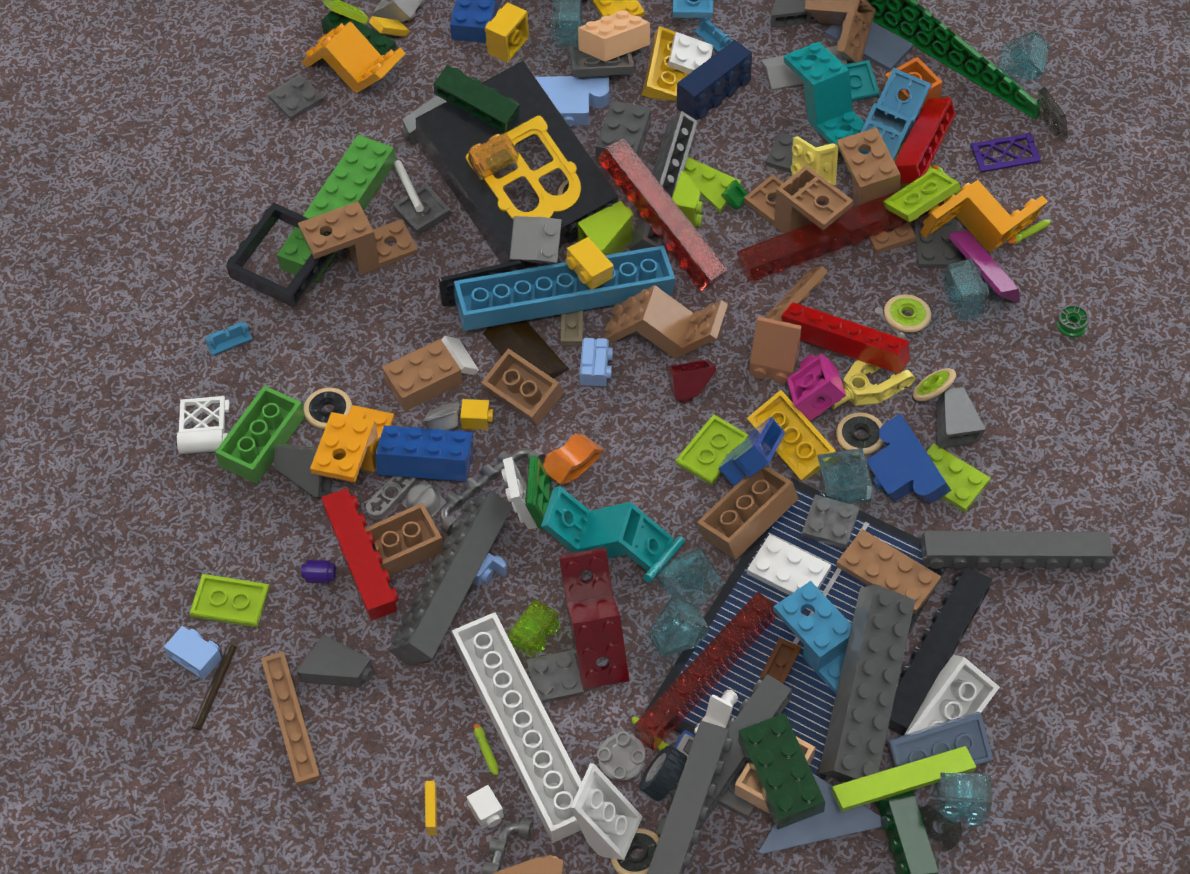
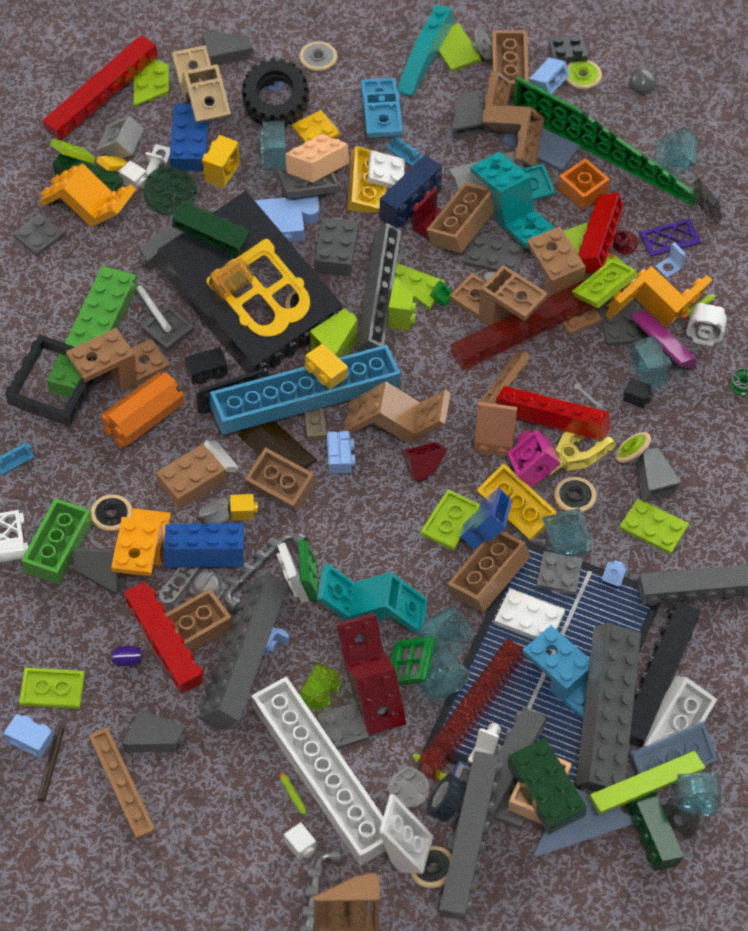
camera: 10 degrees left, 0 degrees up
(378, 295) = (142, 409): none -> orange brick
(409, 41) = (133, 175): none -> white brick
(431, 808) = (254, 847): yellow tile -> none
(435, 27) = (157, 160): none -> white bracket
(444, 51) = (167, 188): none -> clear green tile
(458, 253) = (206, 366): none -> black brick
(535, 239) = (276, 349): light grey slope -> none
(572, 458) = (332, 538): orange brick -> none
(645, 607) = (413, 659): none -> green piece
(662, 214) = (382, 317): clear red brick -> none
(664, 559) = (422, 618): teal bar -> none
(730, 108) = (425, 213): none -> dark red bracket
(768, 113) = (461, 218): none -> medium nougat brick
(781, 660) = (533, 694): reddish brown plate -> none
(820, 159) = (514, 258): light yellow bracket -> none
(880, 564) = (604, 605): medium nougat plate -> none
(893, 116) = (573, 213): dark azure bracket -> none
(895, 527) = (615, 573): none -> light blue bracket
(905, 464) = (617, 518): blue brick -> none
(914, 323) = (593, 392): wheel -> none
(947, 323) = (638, 393): none -> black brick
(953, 153) = (625, 242): none -> dark red piece
(1009, 176) = (676, 258): none -> light blue bracket
(1036, 252) = (706, 324): none -> white brick

